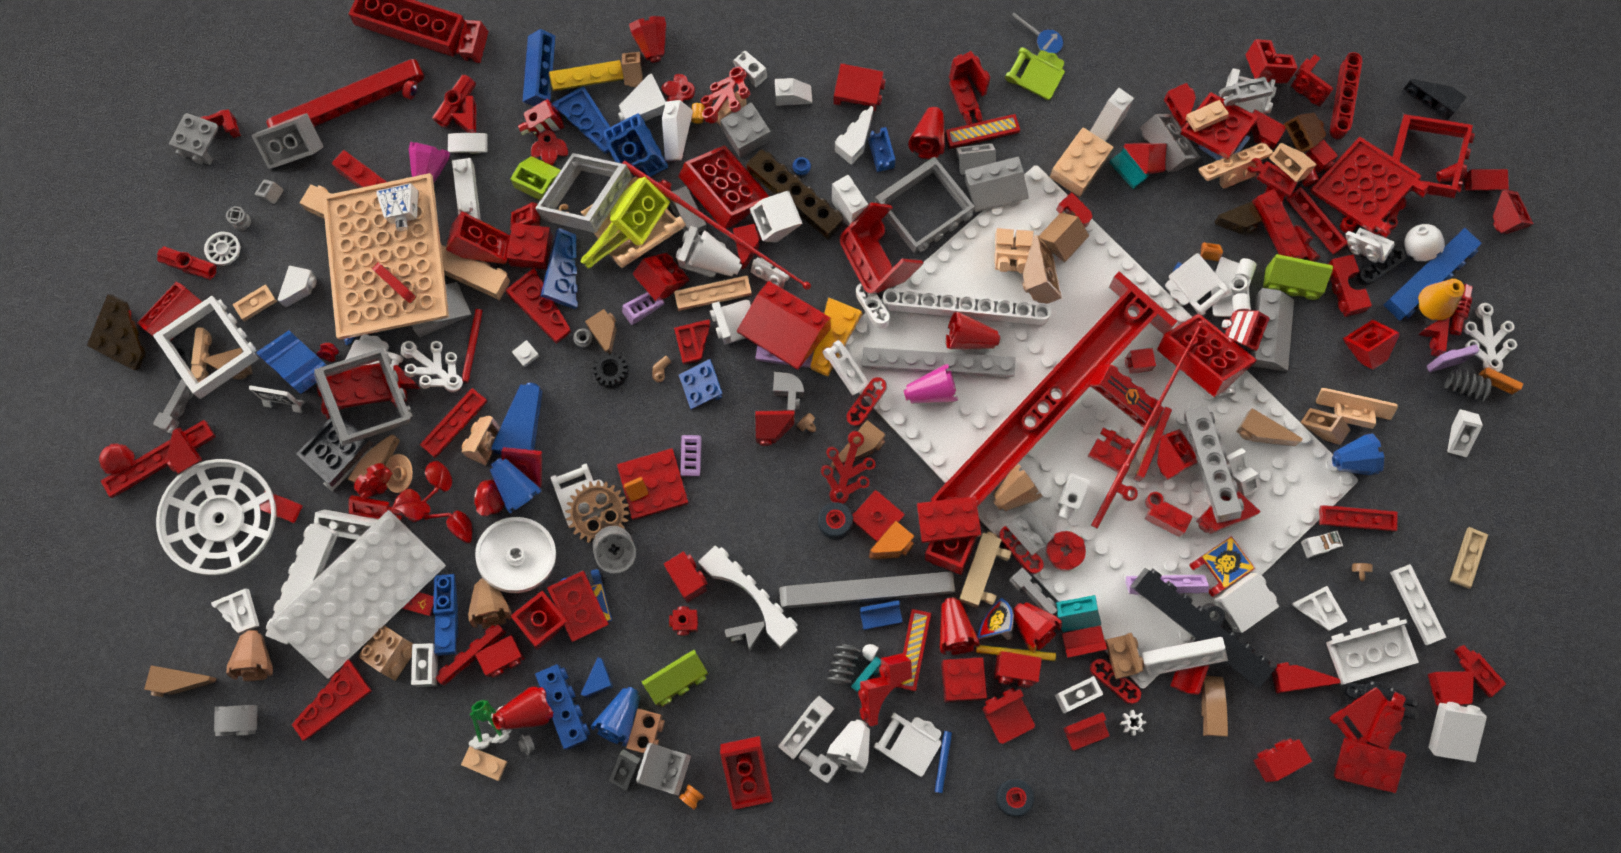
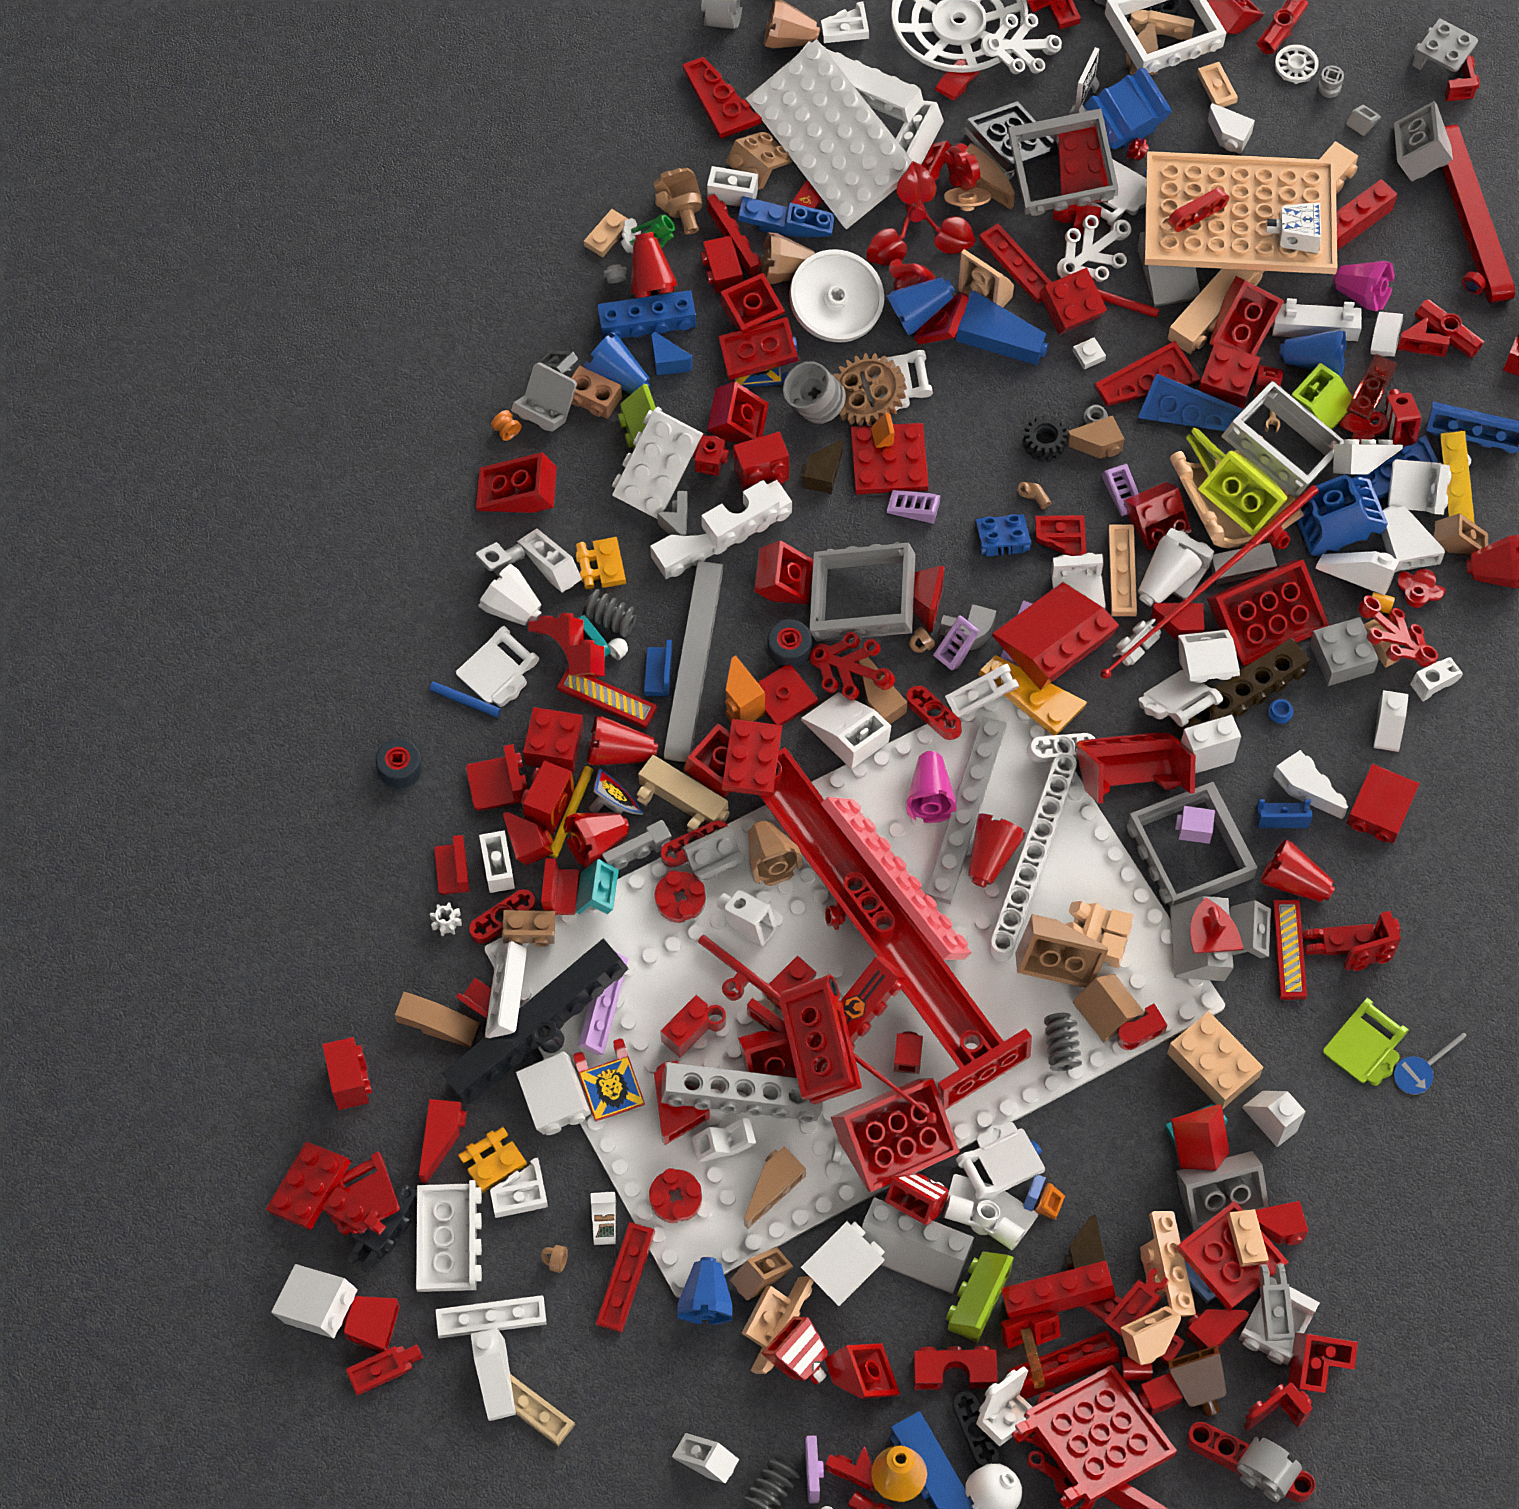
camera: 105 degrees right, 10 degrees down
(248, 478) = (1018, 45): none -> white plant
(442, 707) = (679, 196): none -> medium nougat piece
(485, 370) = (1072, 301): none -> red brick
(496, 186) = (1314, 349): none -> blue cone
(520, 144) = (1372, 387): none -> clear red slope
(584, 139) = (1363, 457): none -> white slope
(598, 96) = (1419, 486): none -> white bracket
(641, 609) = (737, 414): none -> red slope
(675, 530) = (822, 468): none -> dark brown slope
(709, 658) = (656, 463): none -> white bracket
(730, 565) = (726, 527): none -> white arch
(776, 539) = (784, 574): none -> red slope
(795, 680) = (608, 560): none -> light orange plate
(812, 237) = (1177, 694): none -> white piece
(814, 471) = (861, 626): none -> light grey window
(820, 397) = (942, 651): none -> lavender slope
(897, 460) = (848, 728): none -> white slope
(916, 199) = (1195, 824): none -> lavender brick
(996, 172) = (1213, 929): none -> shield
(1014, 395) = (896, 878): none -> coral plate
(1051, 678) = (528, 839): none -> red slope
(1052, 435) = (834, 916): none -> red plate
(1103, 257) = (1061, 1042): none -> dark grey piece
(1138, 418) = (819, 1040): none -> red hinge
(1213, 259) = (1034, 1192): none -> tile
(1301, 491) = (669, 1182): none -> red plate
(1305, 370) = (844, 1262): none -> white brick
(1307, 632) = (495, 1167): none -> light orange plate
(1331, 234) = (1032, 1358): none -> clear orange tile
(1362, 74) = (1268, 1468): none -> light grey brick
(1377, 387) = (798, 1351): none -> red torso
(1460, 589) = (493, 1373): none -> white slope

